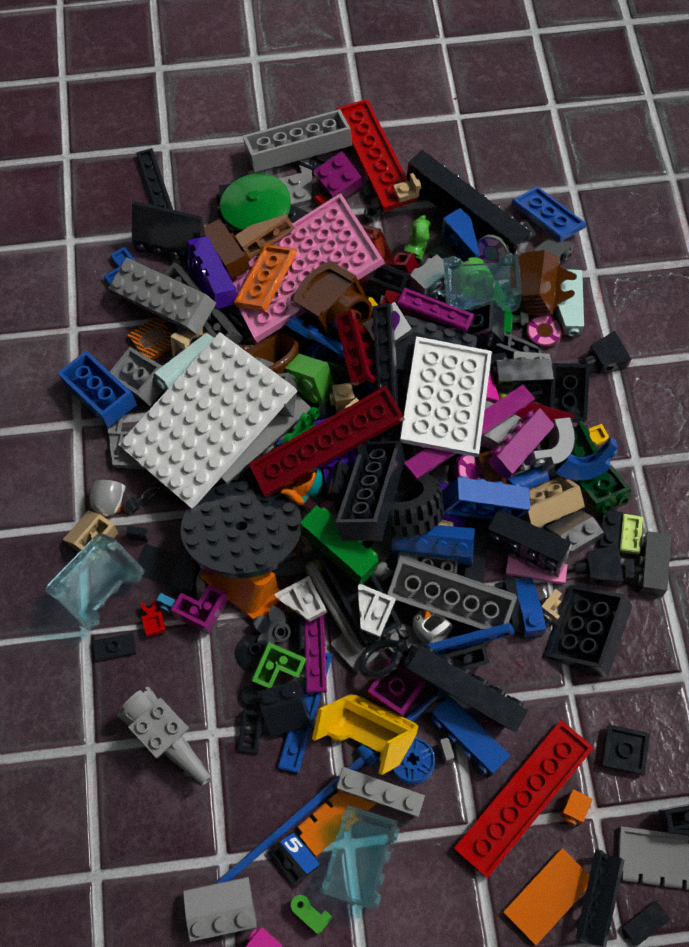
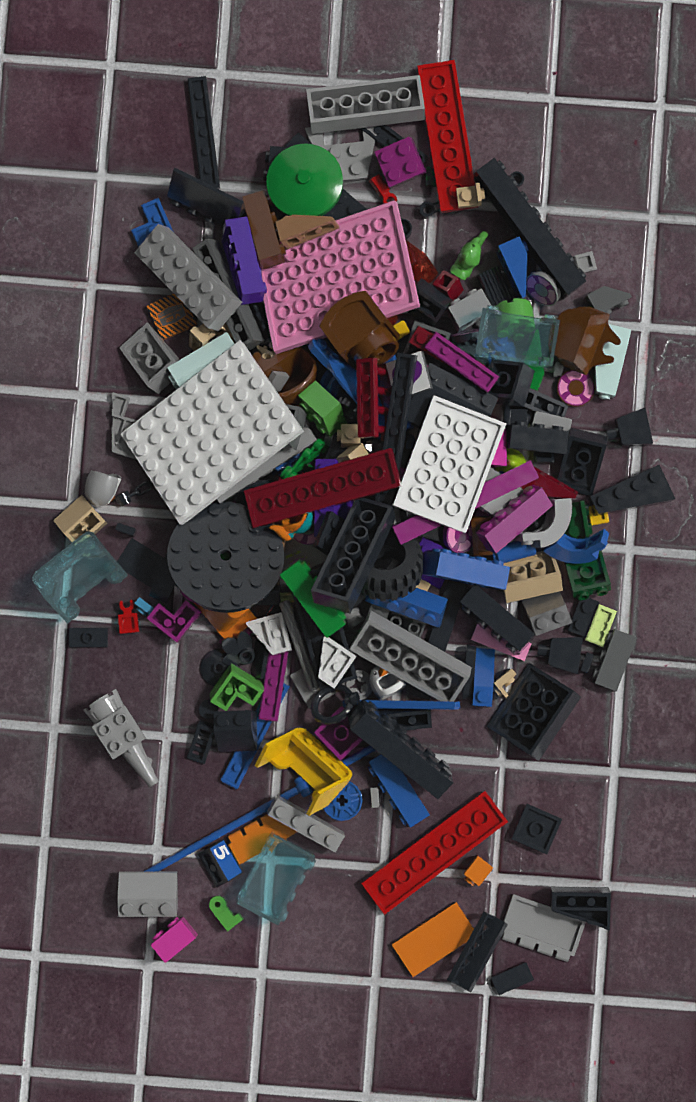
camera: 10 degrees right, 20 degrees up
(97, 389) = (107, 368): blue brick -> none
(265, 277) = (298, 281): orange tile -> none
(548, 213) = (615, 250): blue tile -> none
(628, 405) = (638, 491): none -> black wedge

